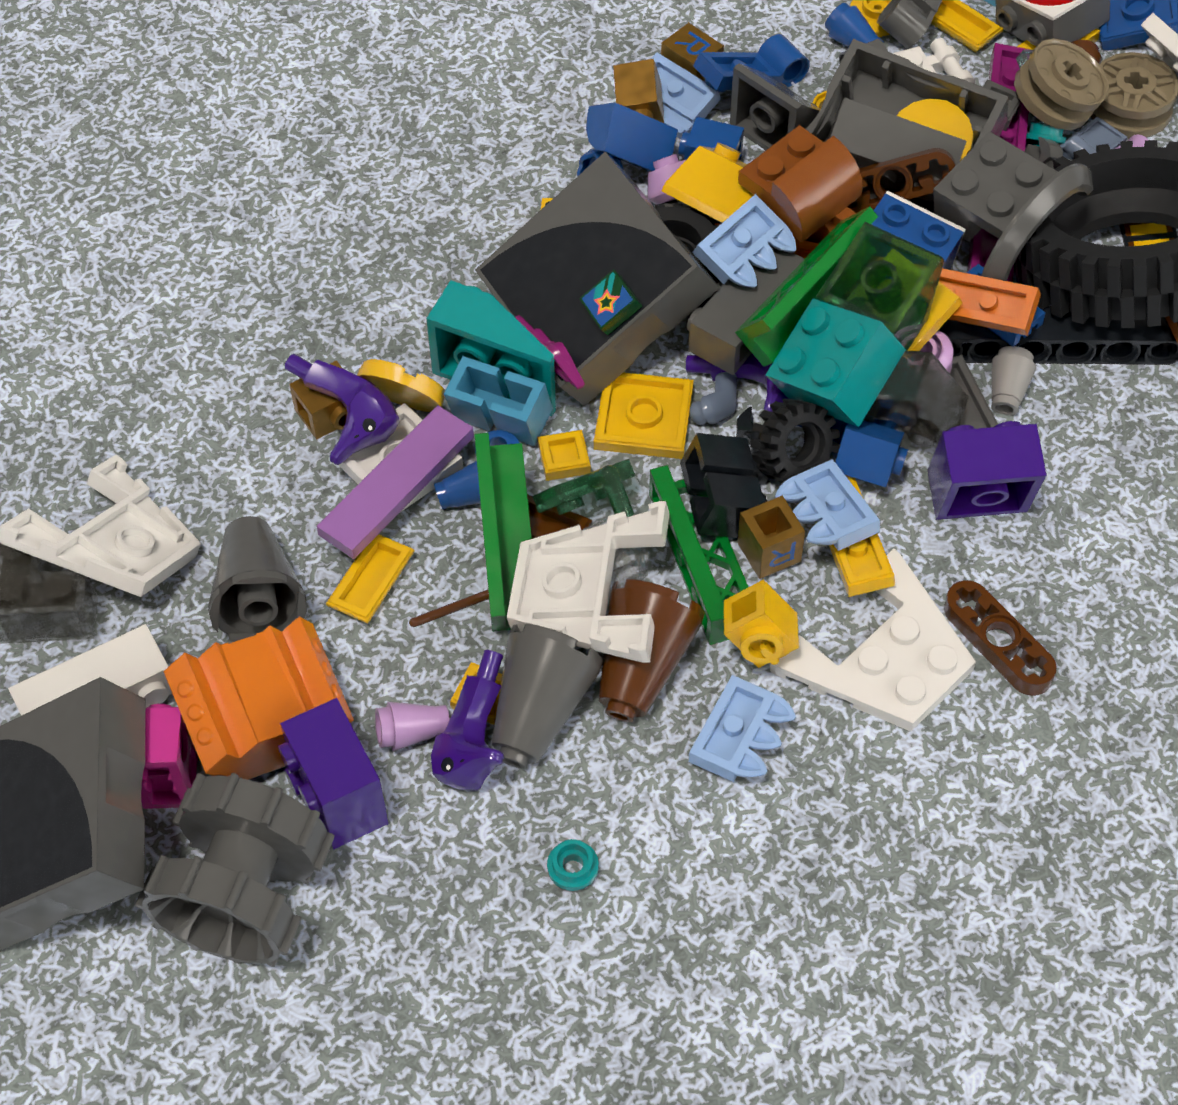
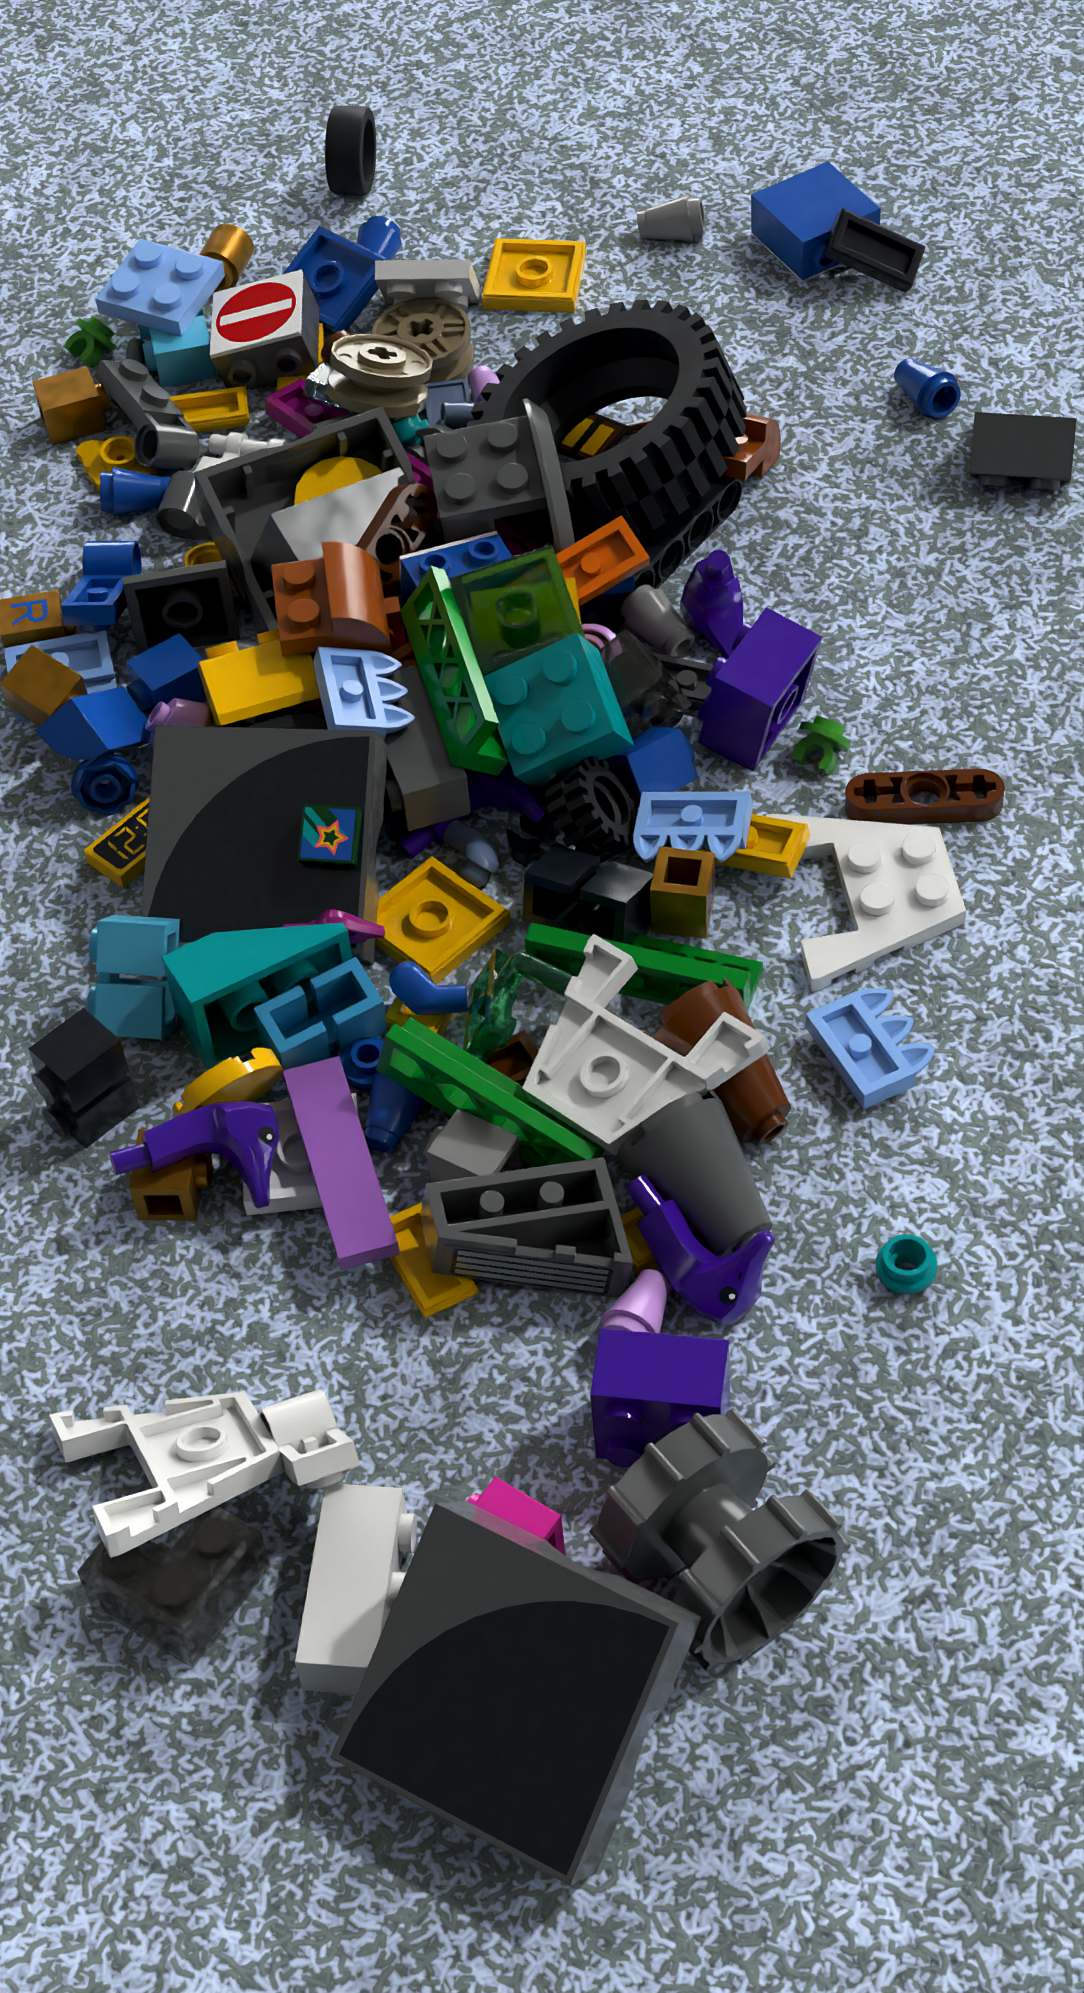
camera: 50 degrees left, 5 degrees down
(173, 597) = (309, 1440): none -> white plate
(244, 691) = (522, 1416): orange slope -> none
(253, 582) = (357, 1354): dark grey cone -> none
(351, 307) = (83, 1079): none -> black piece
(421, 616) = (530, 1228): none -> dark grey wedge
(455, 259) = (135, 948): none -> medium azure piece
(461, 555) = (471, 1149): none -> light grey brick
(565, 444) = (423, 995): none -> blue arm
(761, 624) = (781, 951): yellow brick -> none
(994, 542) = (824, 736): none -> bright green plate
(1051, 399) = (714, 602): none -> dark purple animal

